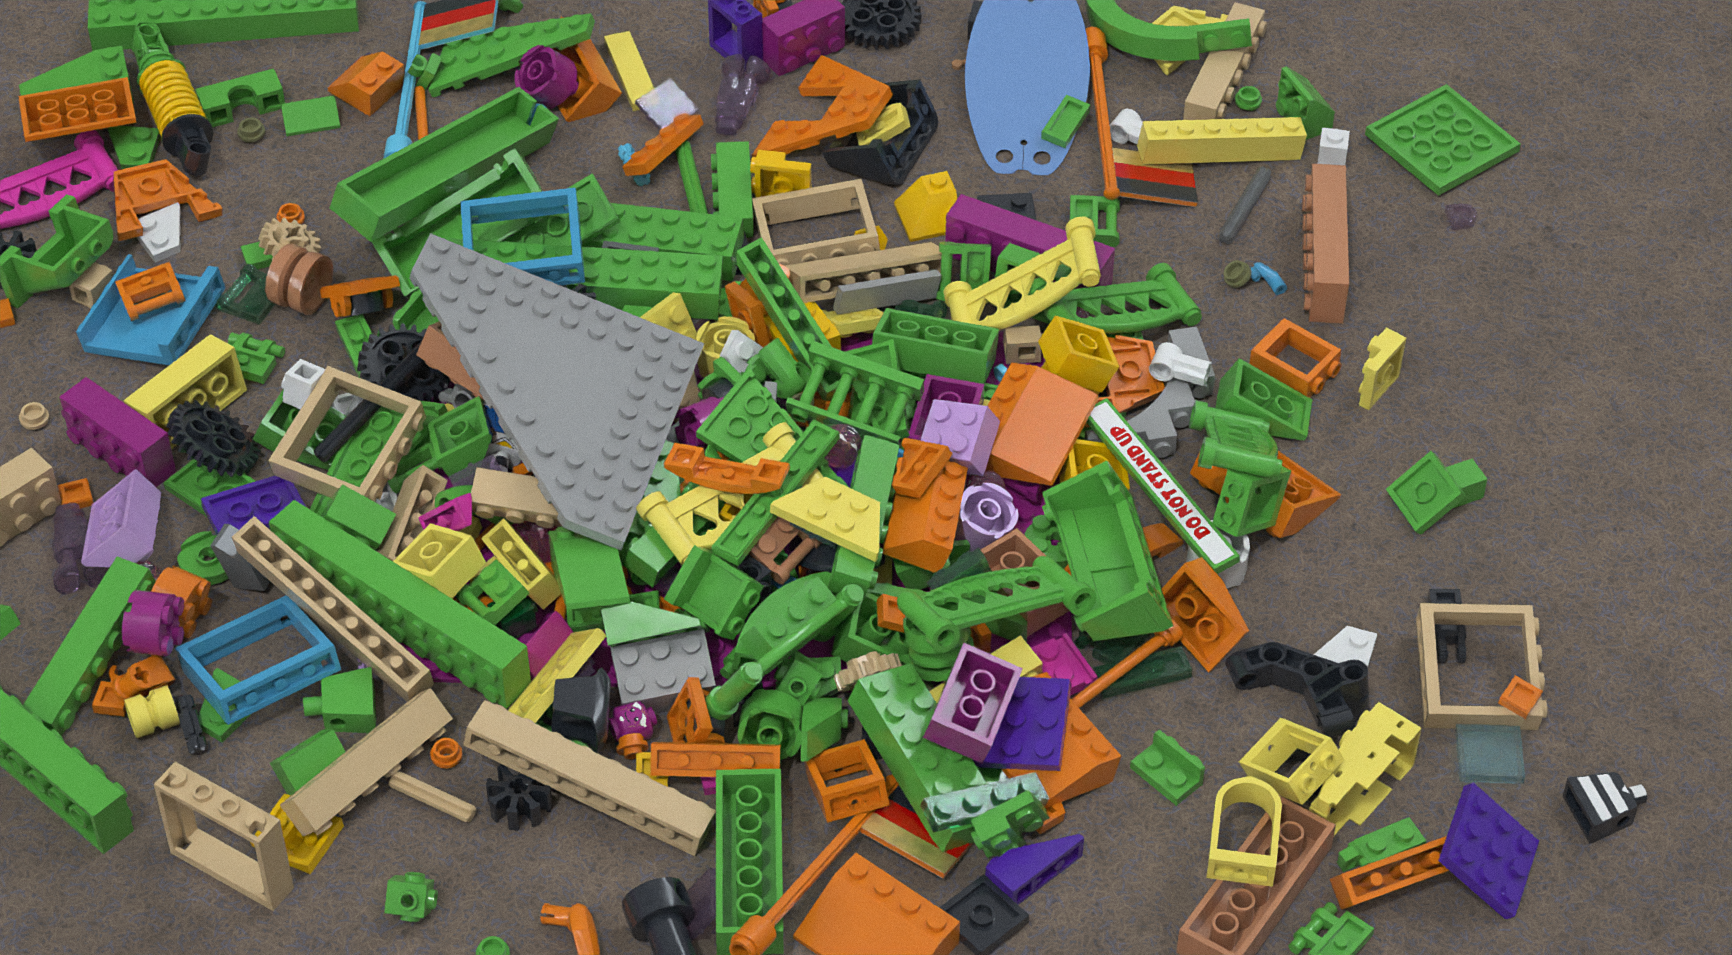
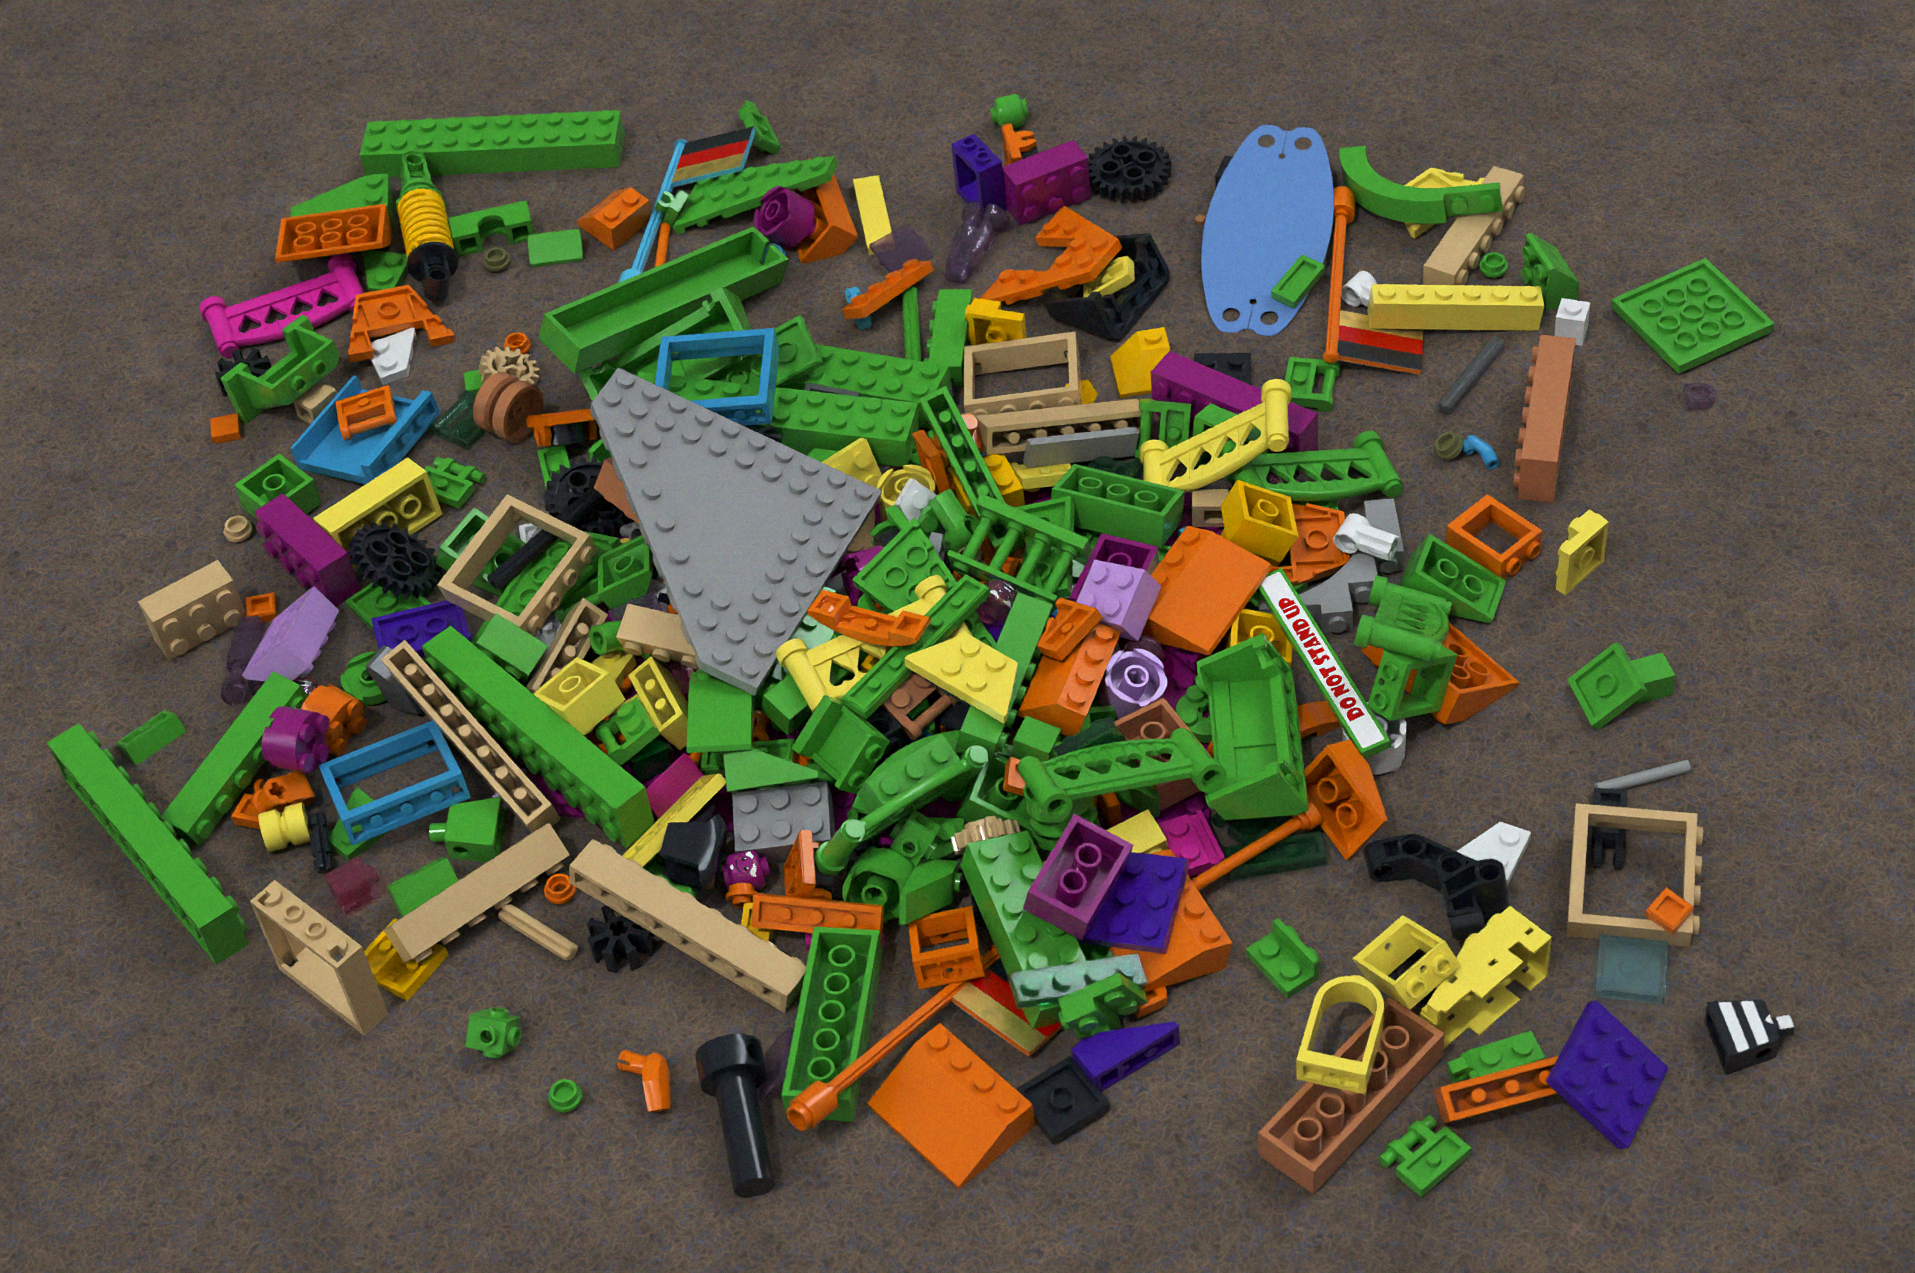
camera: 15 degrees right, 0 degrees up
(65, 368) = (272, 480): none -> bright green brick
(234, 763) = (352, 884): none -> clear pink brick
(300, 382) = (479, 507): white brick -> none
(452, 515) = (599, 649): dark pink slope -> none
(905, 575) = (1036, 740): none -> bright green brick
(1472, 575) = (1646, 776): none -> light grey bar

